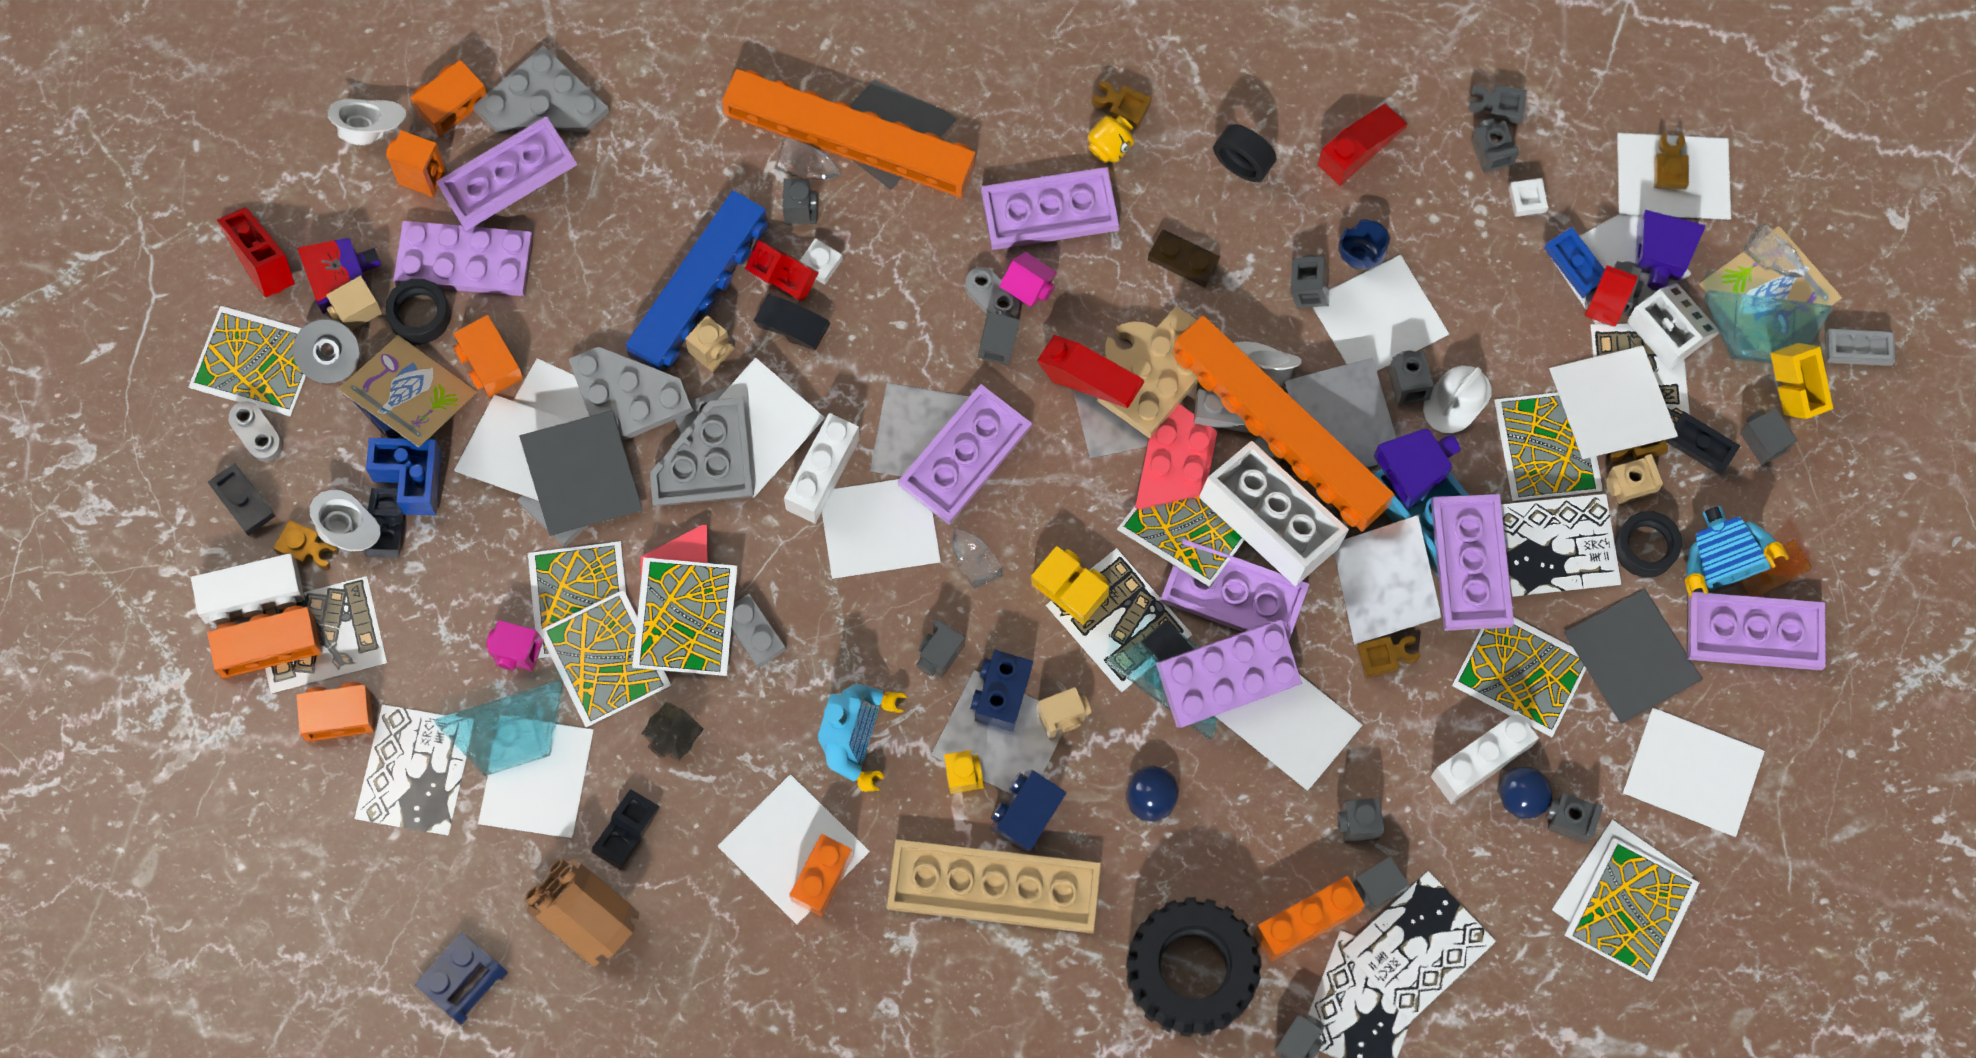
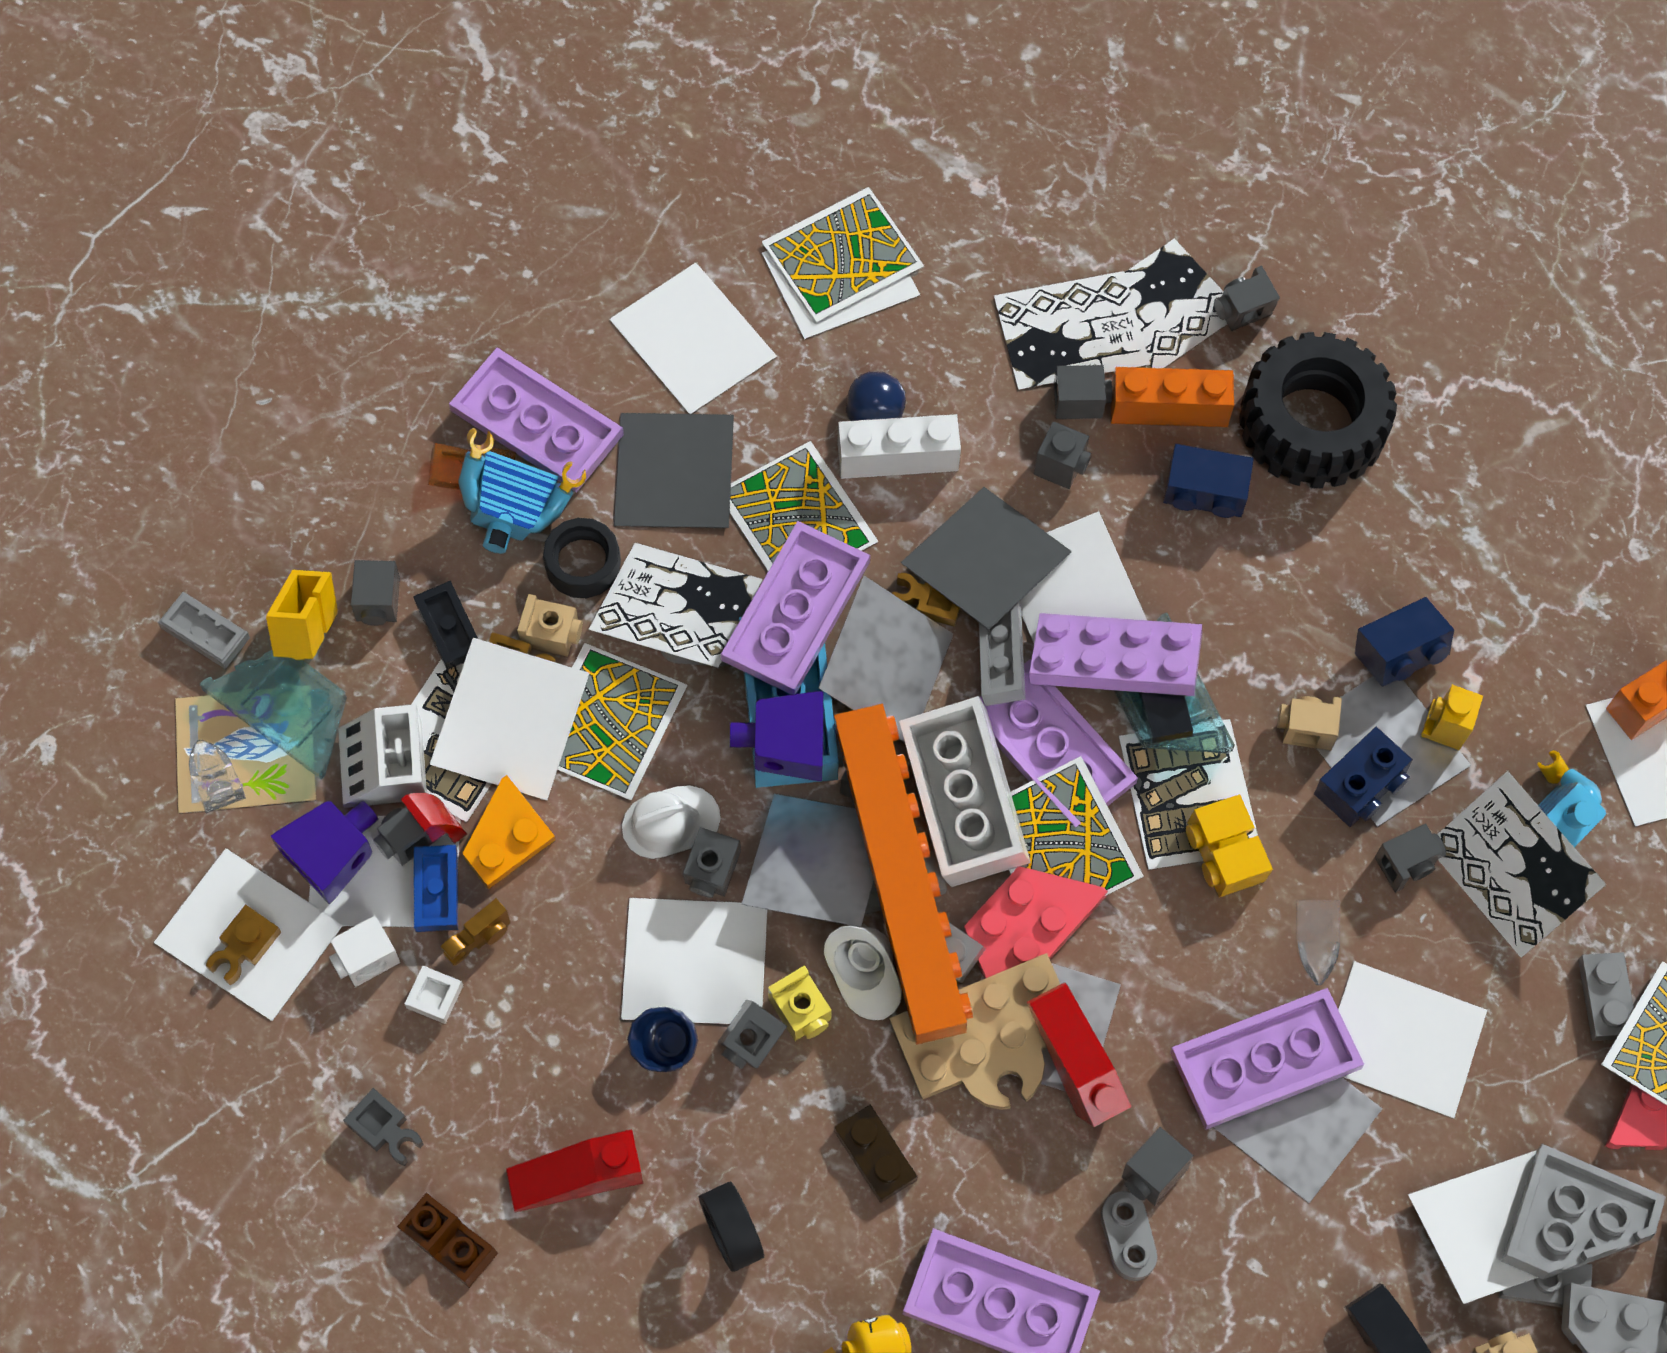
camera: 150 degrees left, 5 degrees down
(822, 468) = (1444, 1128): white brick -> none
(864, 674) = (1516, 864): none -> sticker
(994, 886) = (1477, 596): tan plate -> none
(1028, 279) = (1080, 1218): dark pink brick -> none
(1152, 793) = (1257, 598): dark blue hair -> none
(1241, 858) = (1208, 481): none -> dark blue brick
(1294, 328) = (800, 1022): none -> light yellow brick
(1310, 633) = (1002, 660): none -> light grey plate
(1366, 707) = (986, 557): none -> dark grey sticker
(1411, 65) = (447, 1240): none -> reddish brown slope
(1494, 154) = (433, 1094): dark grey brick -> none
(1526, 254) = (482, 928): none -> pearl gold plate
(1558, 326) = (505, 835): none -> light orange wing
(1580, 829) = (832, 349): dark grey brick -> none
(1591, 197) = (363, 952): none -> white brick

